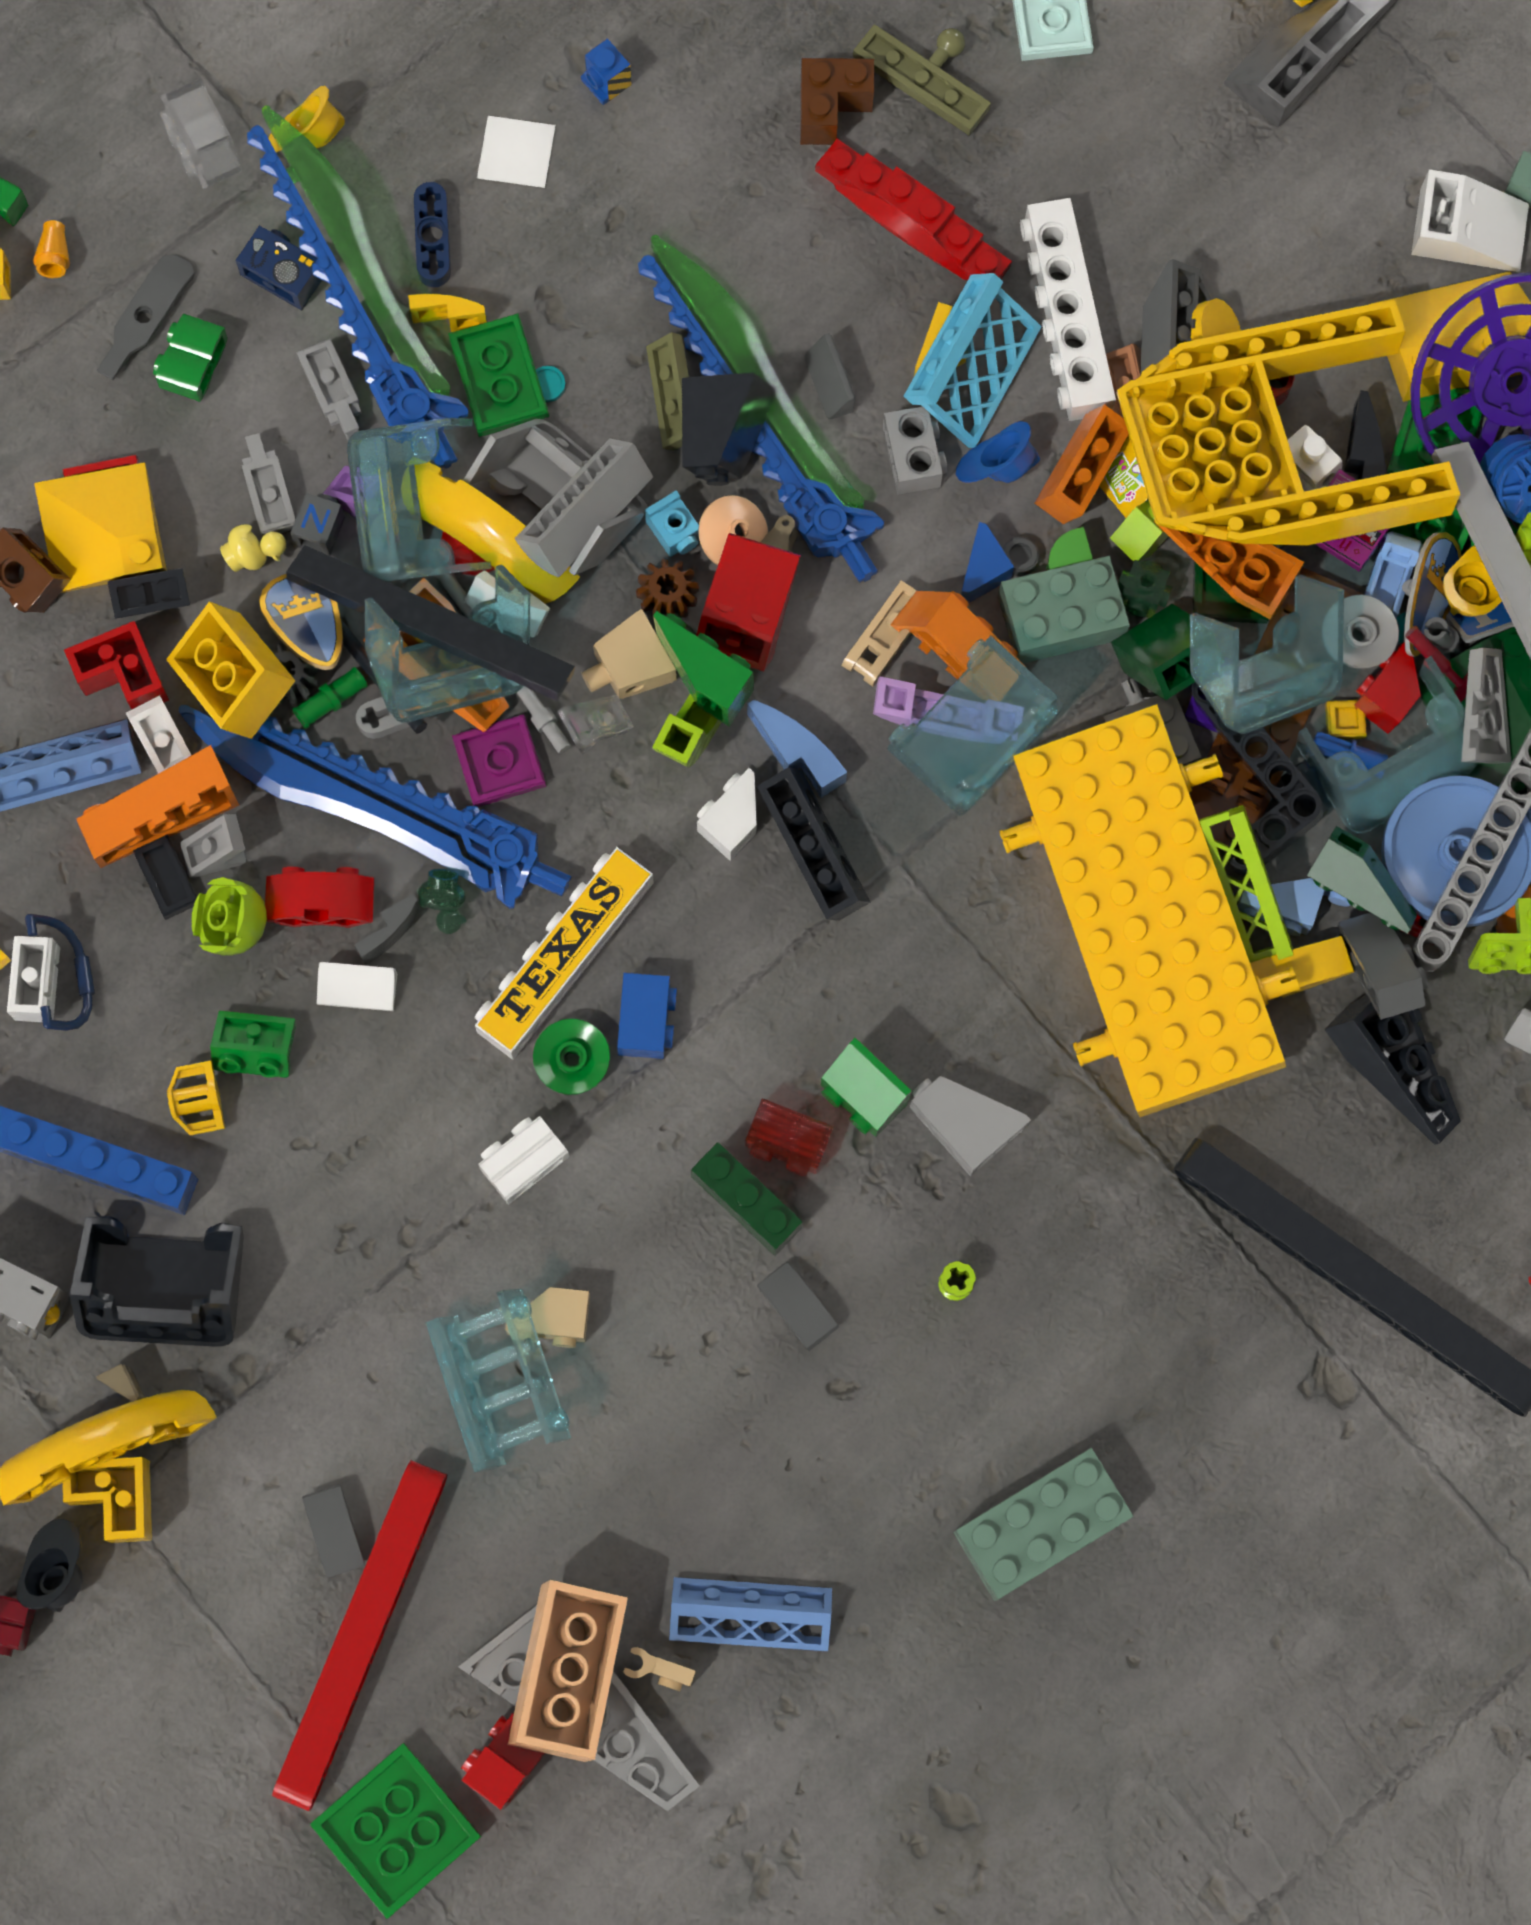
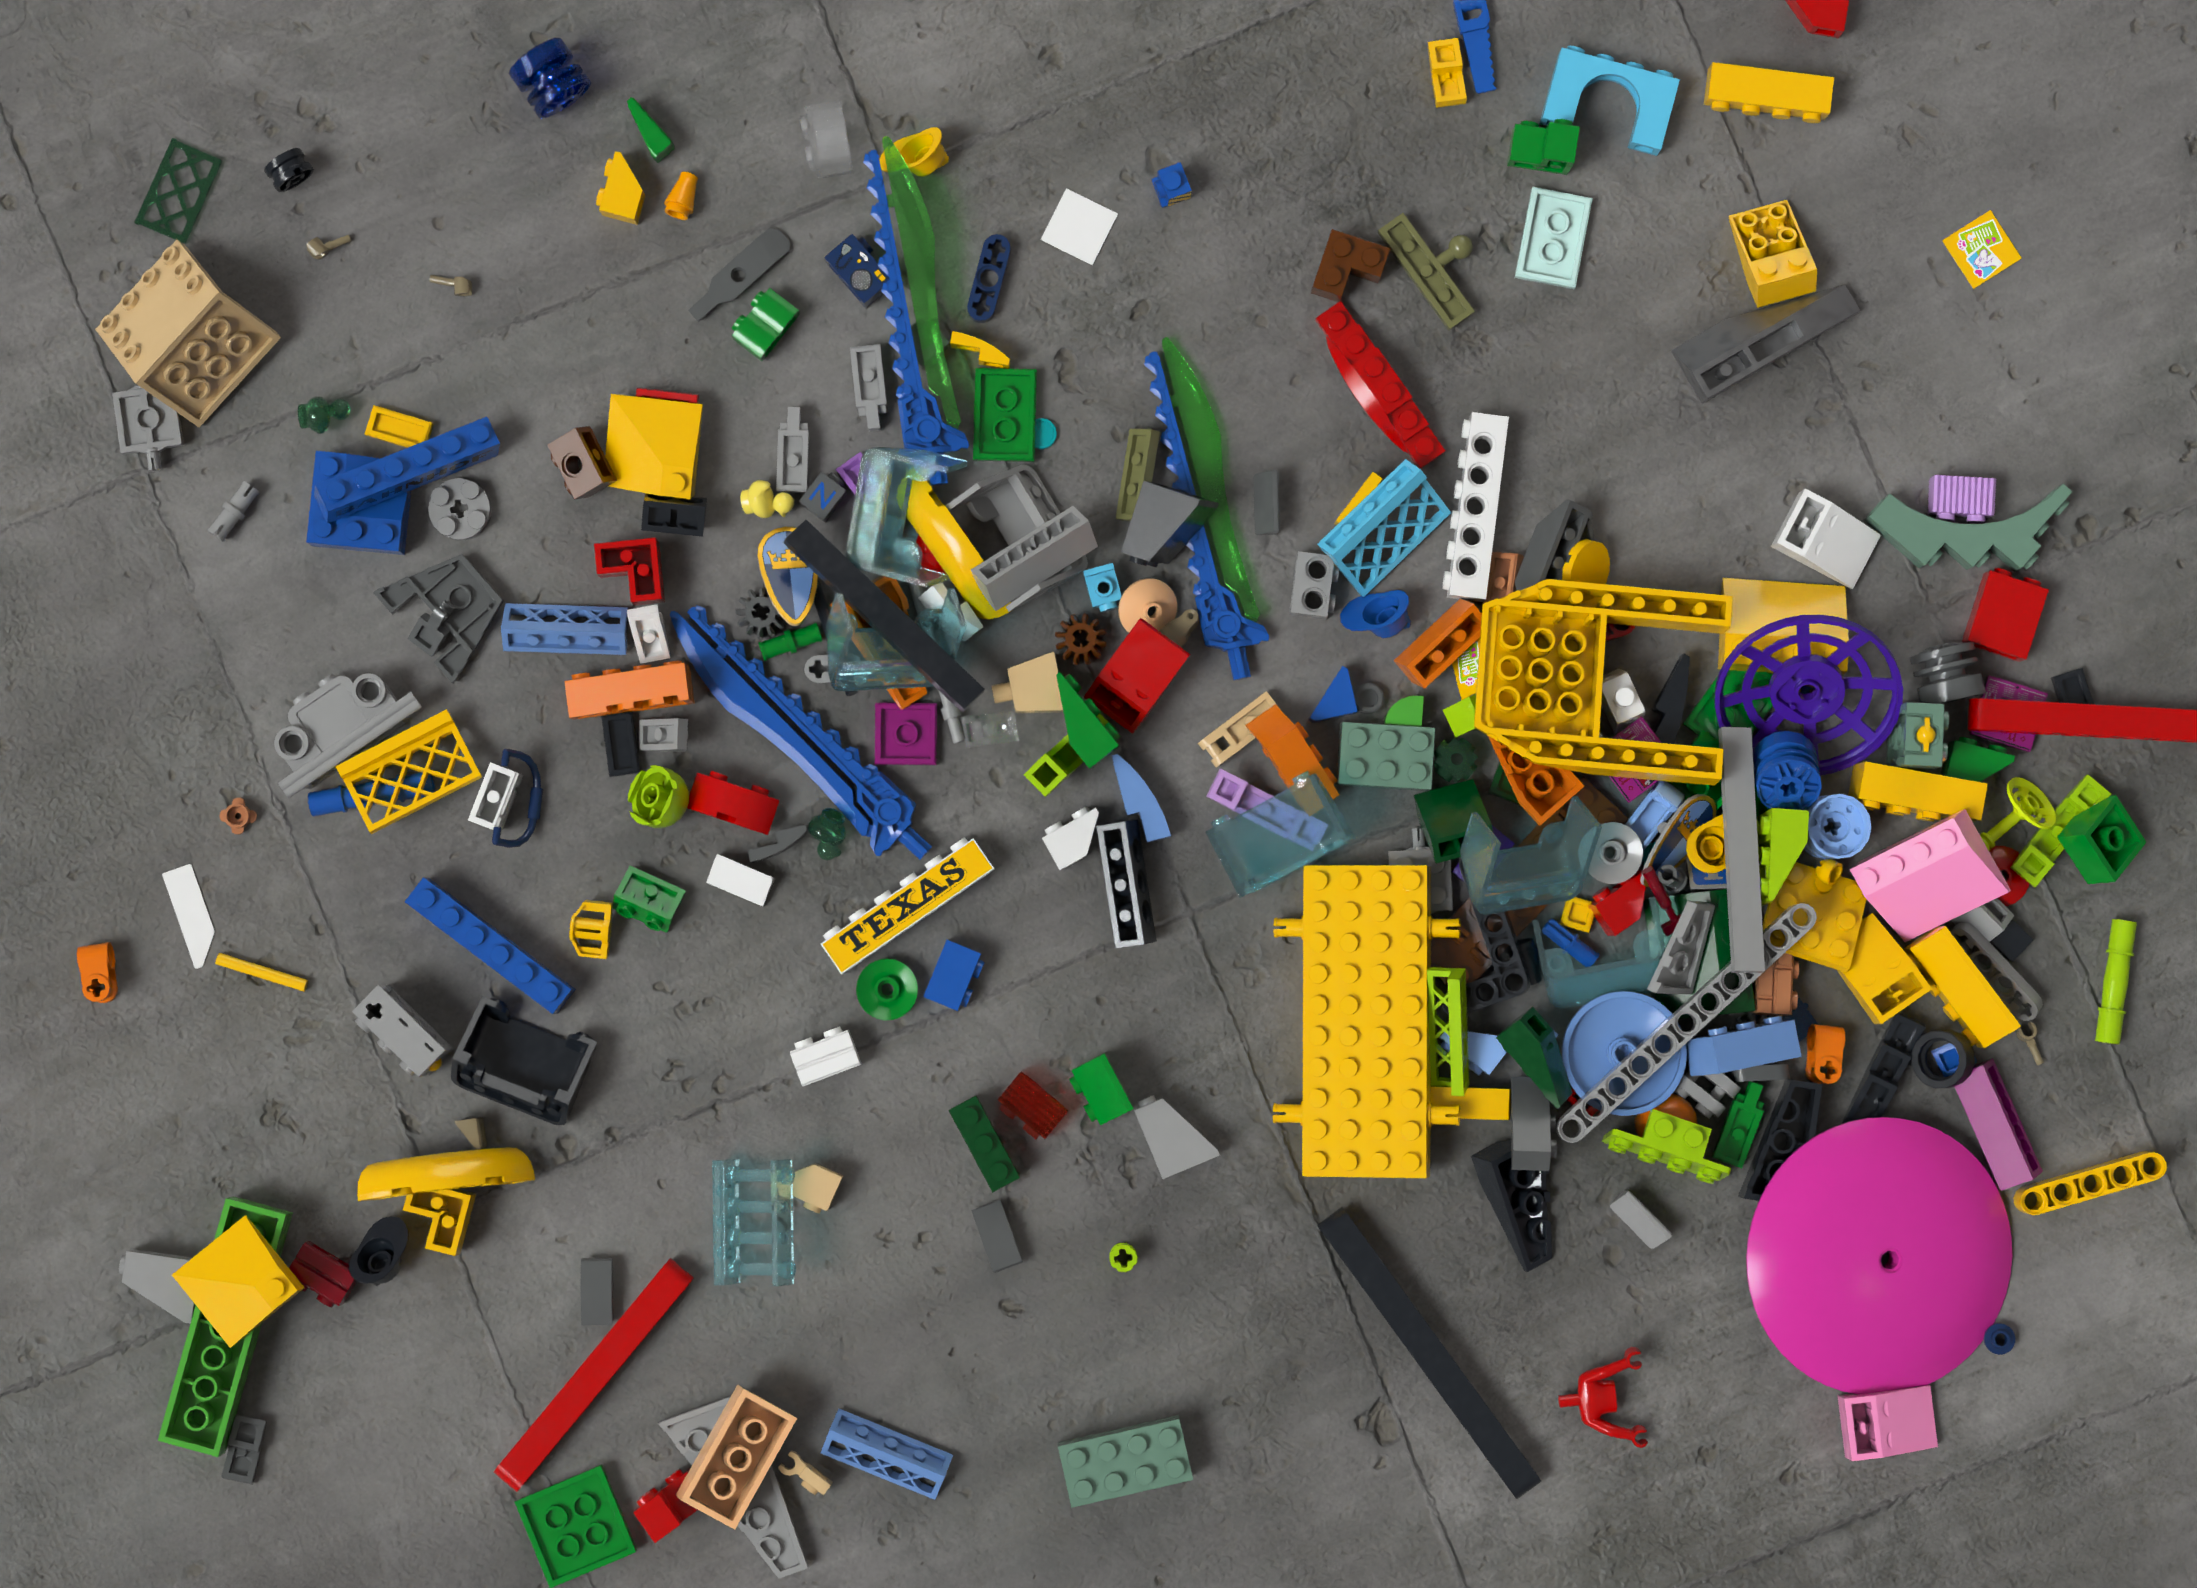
camera: 15 degrees right, 10 degrees up
(230, 670) = (717, 602): yellow brick -> none

